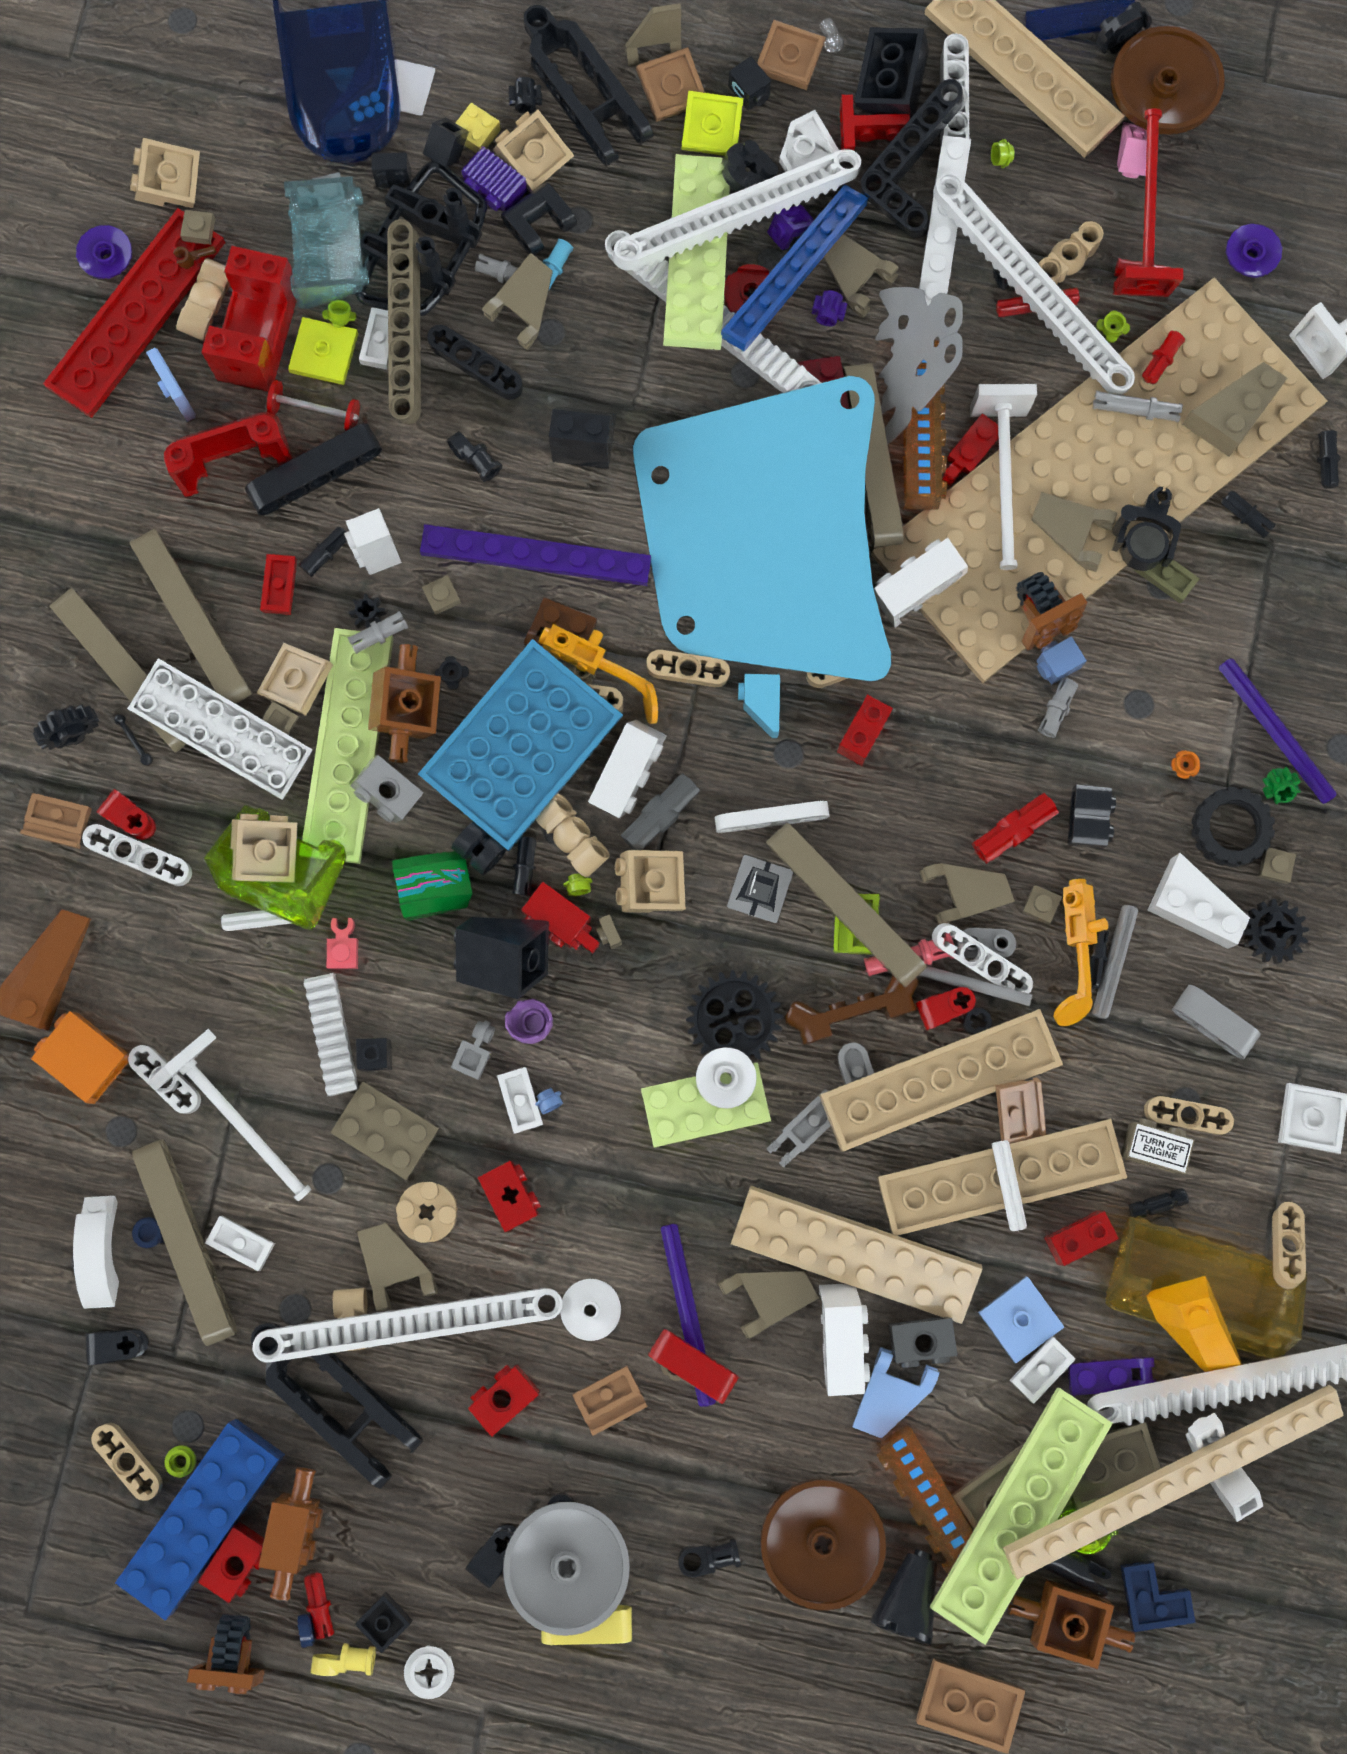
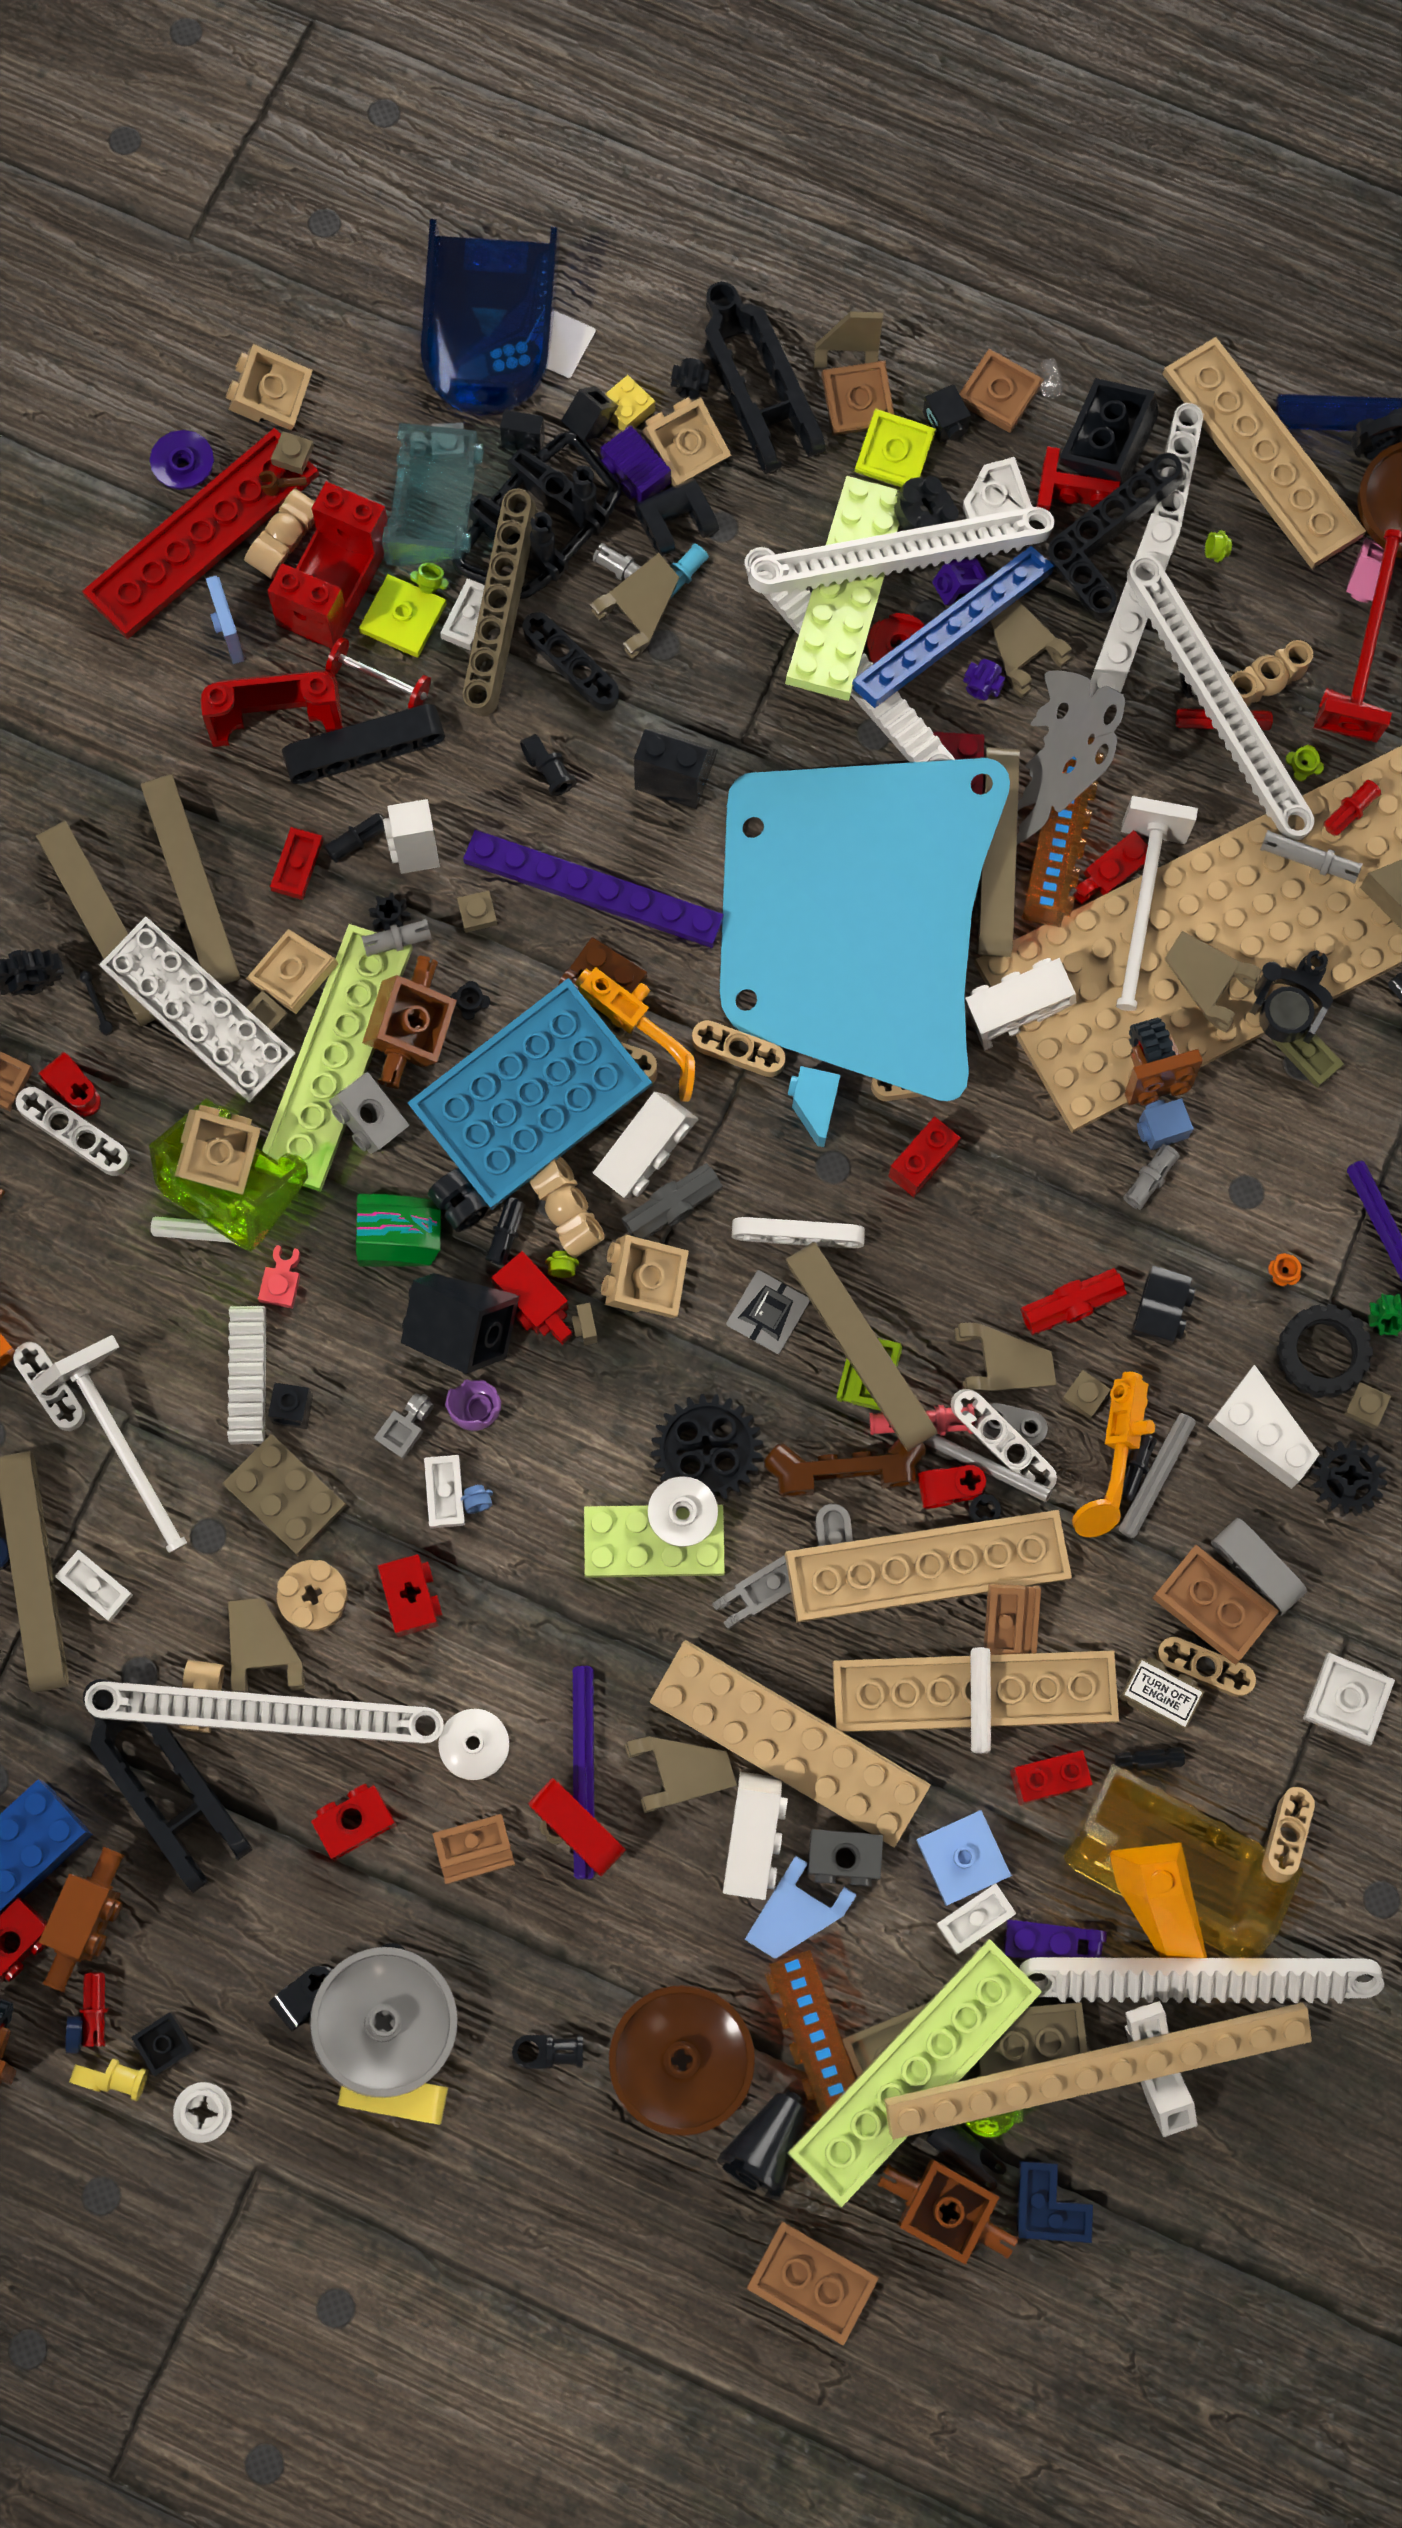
camera: 10 degrees right, 5 degrees down
(1187, 1062) = (1215, 1604): none -> medium nougat plate

